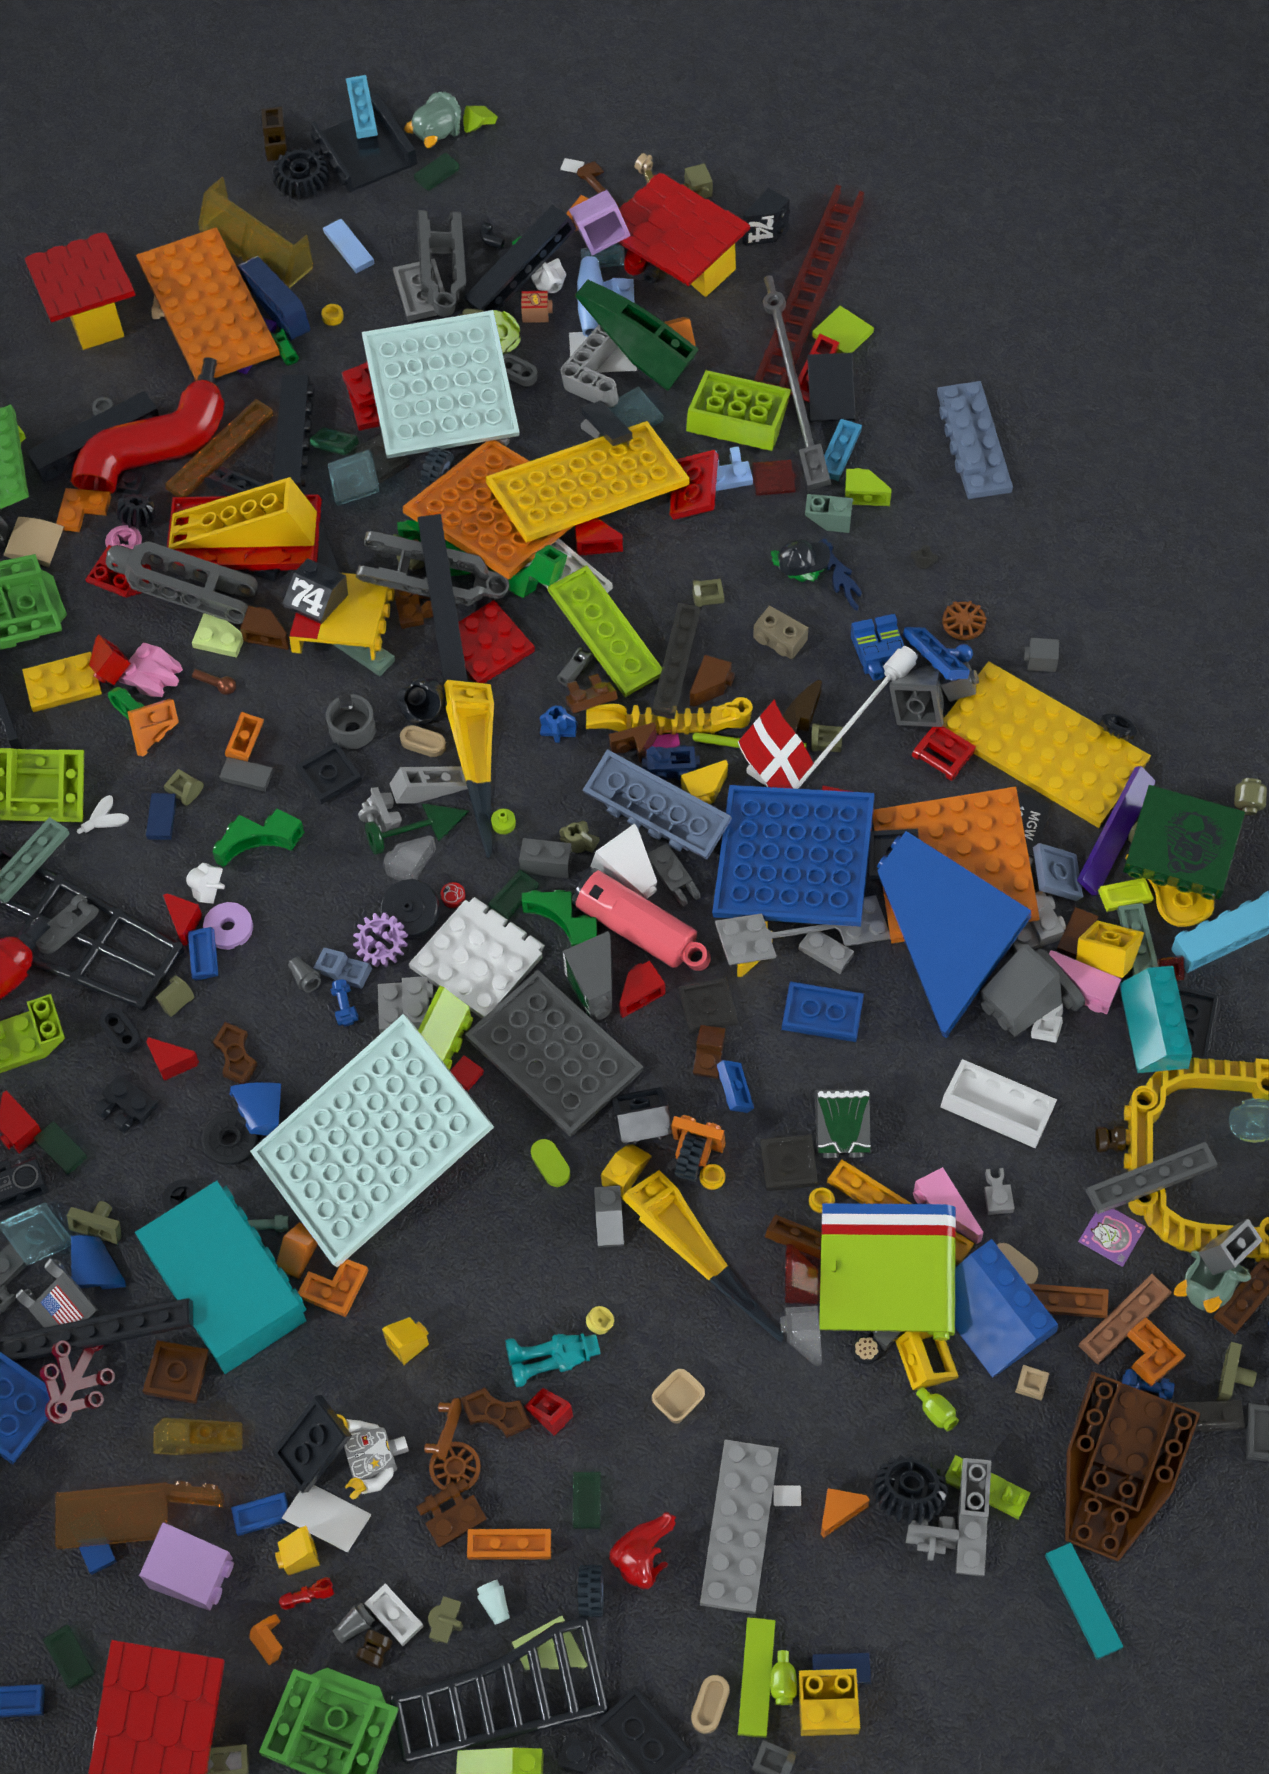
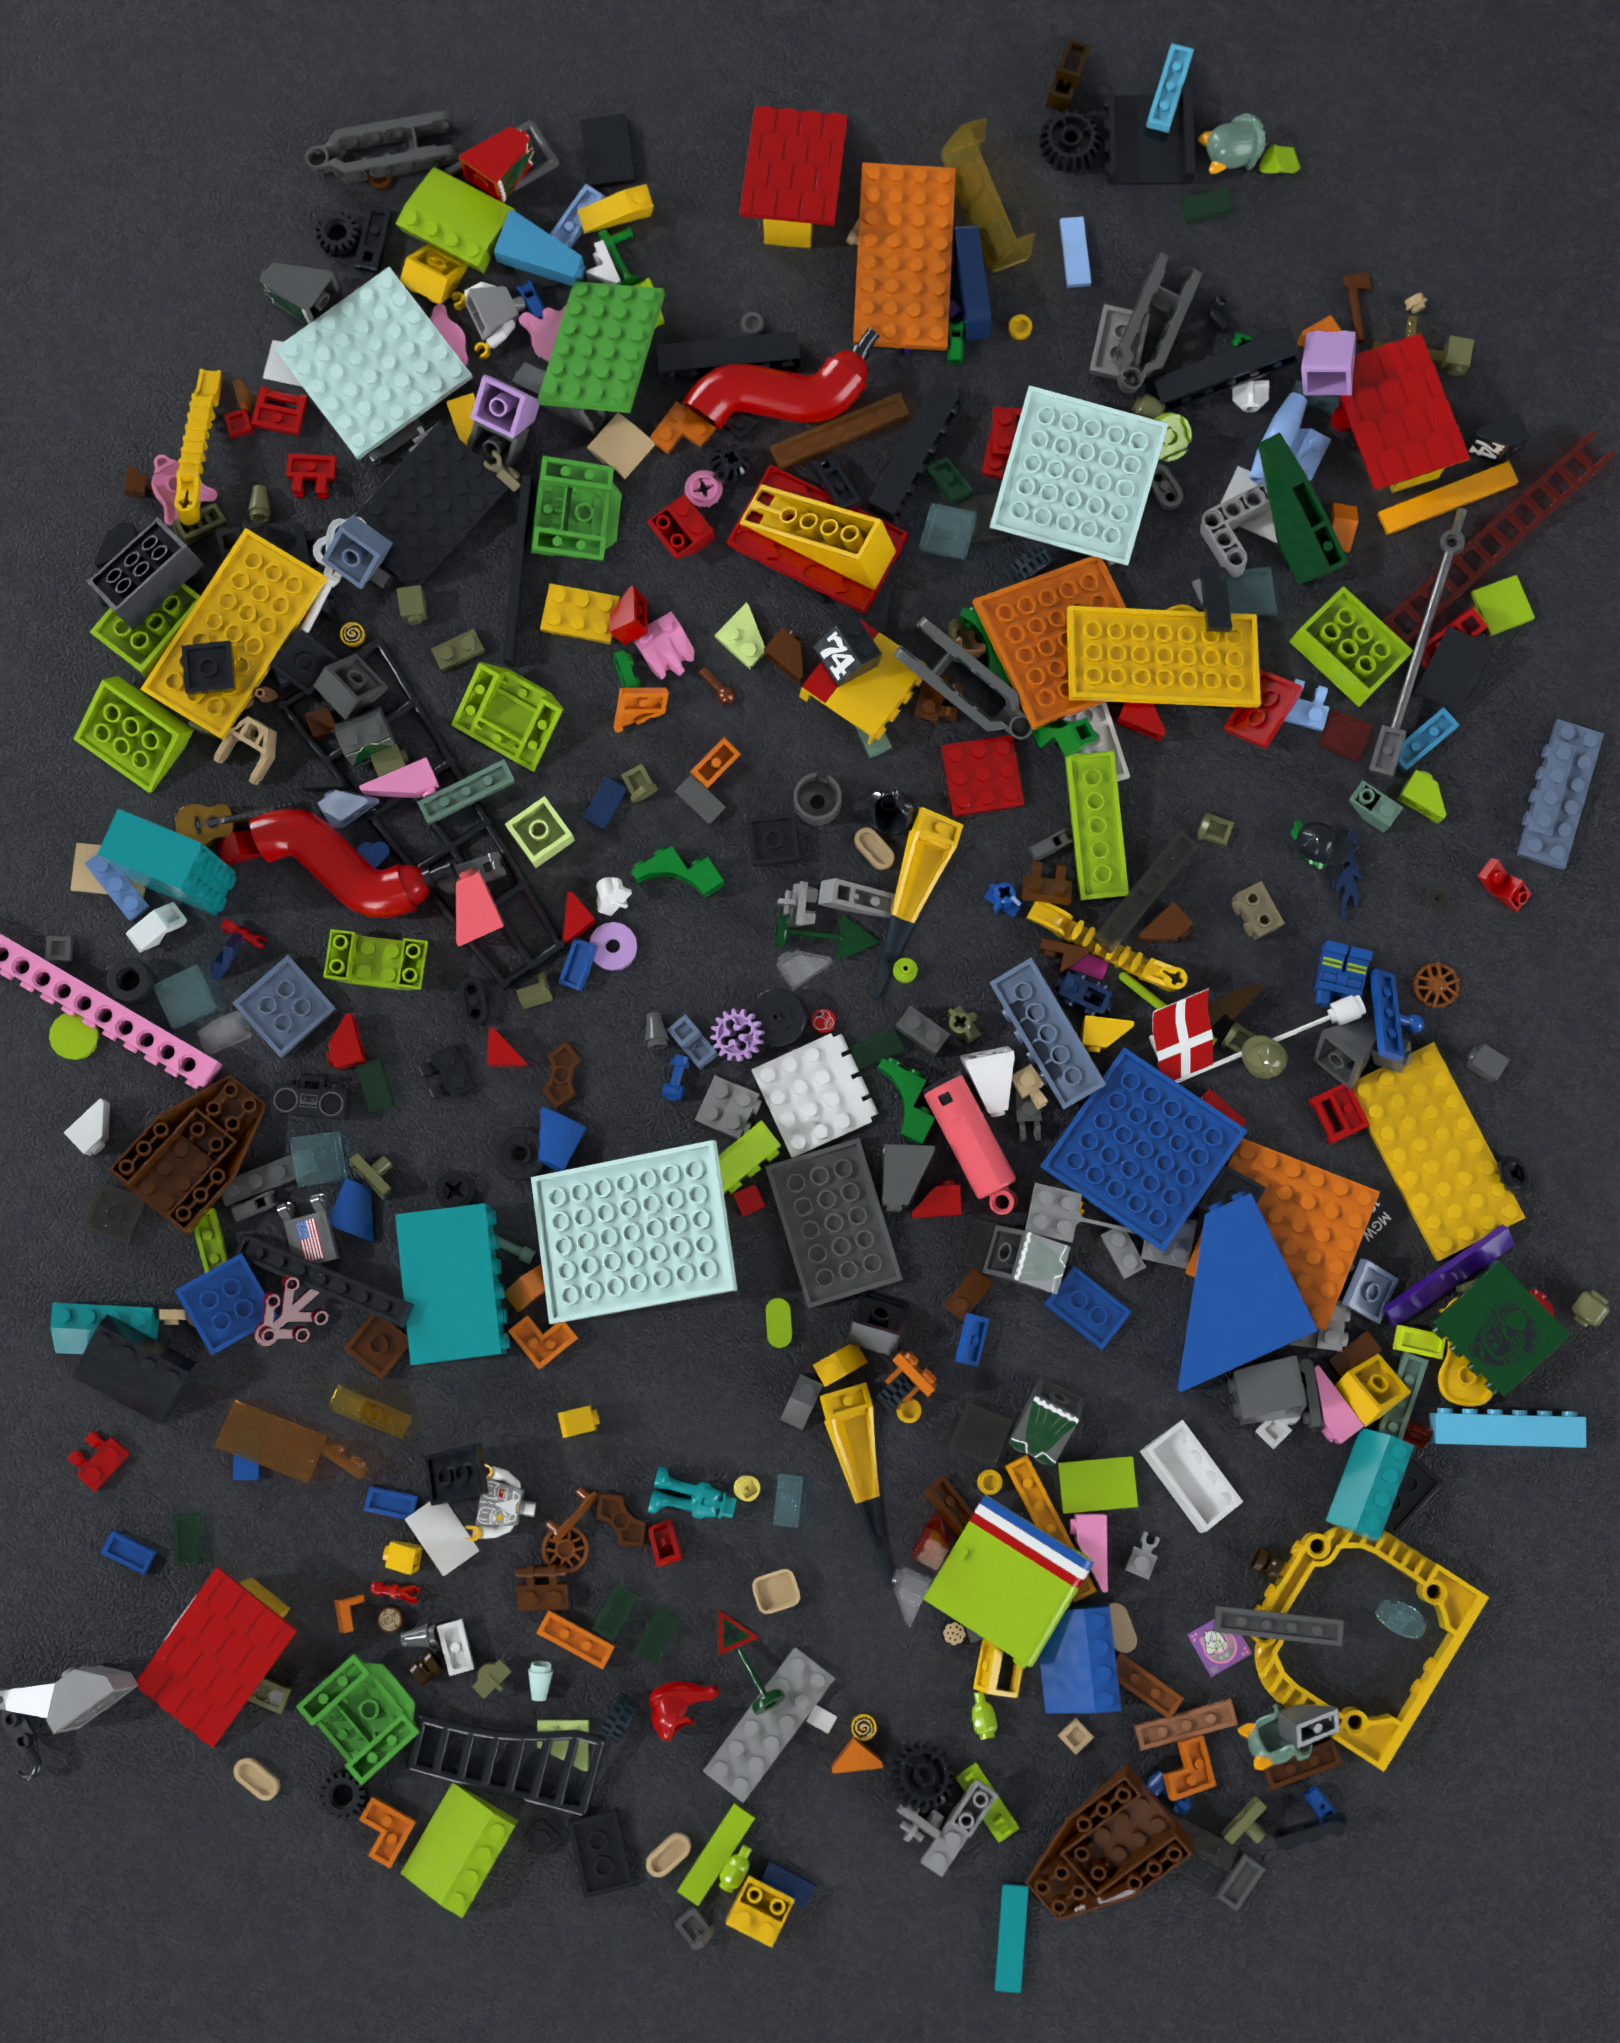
camera: 25 degrees right, 20 degrees up
(82, 941) = (474, 908): none -> coral slope
(101, 818) = (550, 776): white piece -> none
(112, 861) = (540, 832): none -> yellowish green brick
(186, 1567) = (309, 1522): lavender slope -> none
(207, 600) = (693, 529): dark grey piece -> none
(314, 1624) = (390, 1619): none -> tile
(442, 598) = (960, 722): black tile -> none
(534, 1498) = (615, 1612): none -> clear green plate
(536, 306) = (1219, 422): nougat brick -> none
(571, 165) = (1344, 265): white sticker -> none
(645, 1313) = (788, 1500): none -> clear light blue slope
(660, 1460) = (734, 1636): none -> dark green piece
(665, 852) = (1028, 1083): none -> tan plate
(744, 992) = (1026, 1259): none -> dark grey slope
(751, 280) = (1447, 498): none -> light orange tile
(831, 1477) = (863, 1727): none -> tile
(853, 734) = (1264, 1056): none -> olive piece
(920, 1152) = (1097, 1484): none -> lime tile
(974, 524) = (1503, 886): none -> red slope

